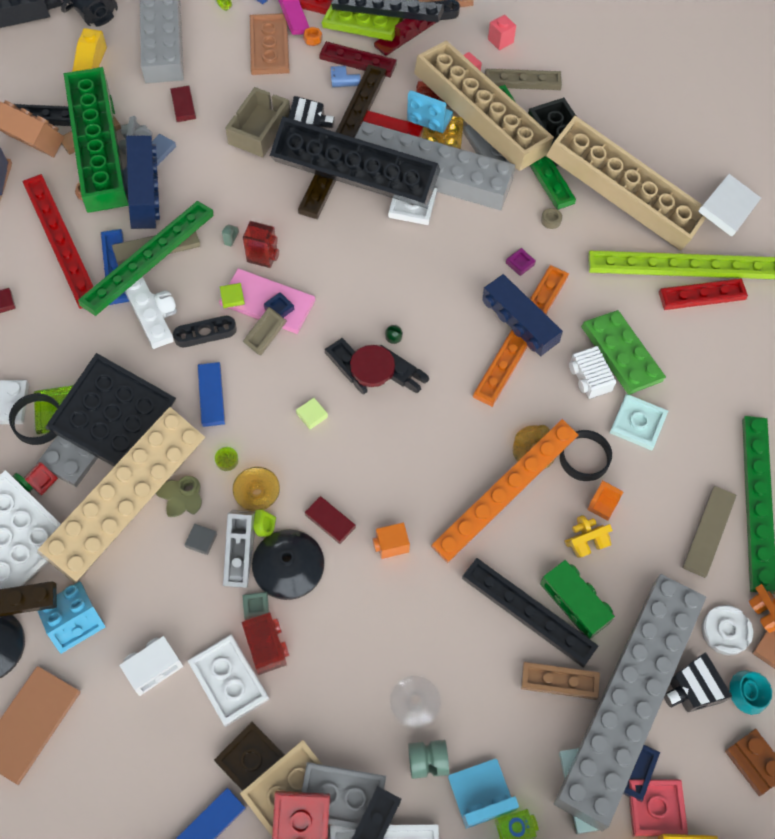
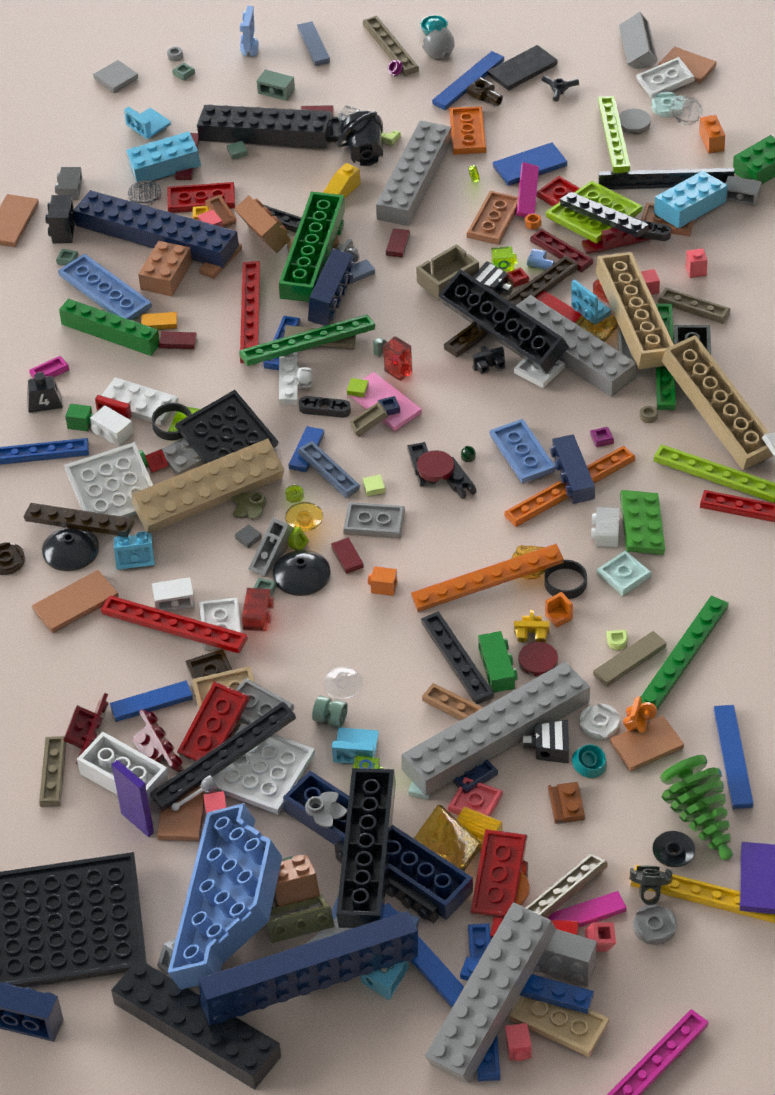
camera: 30 degrees right, 15 degrees down
(173, 711) = (174, 624): none -> red plate
(251, 412) = (329, 469): none -> sand blue tile
(306, 86) = (503, 258): none -> clear neon green brick
(331, 103) = (518, 277): none -> red tile
(335, 459) = (374, 520): none -> light grey tile
(353, 208) = (486, 358): none -> black hips
(451, 310) = (522, 451): none -> medium blue plate
(615, 573) = (537, 658): none -> dark red tile
(681, 511) = (617, 639): none -> yellowish green tile

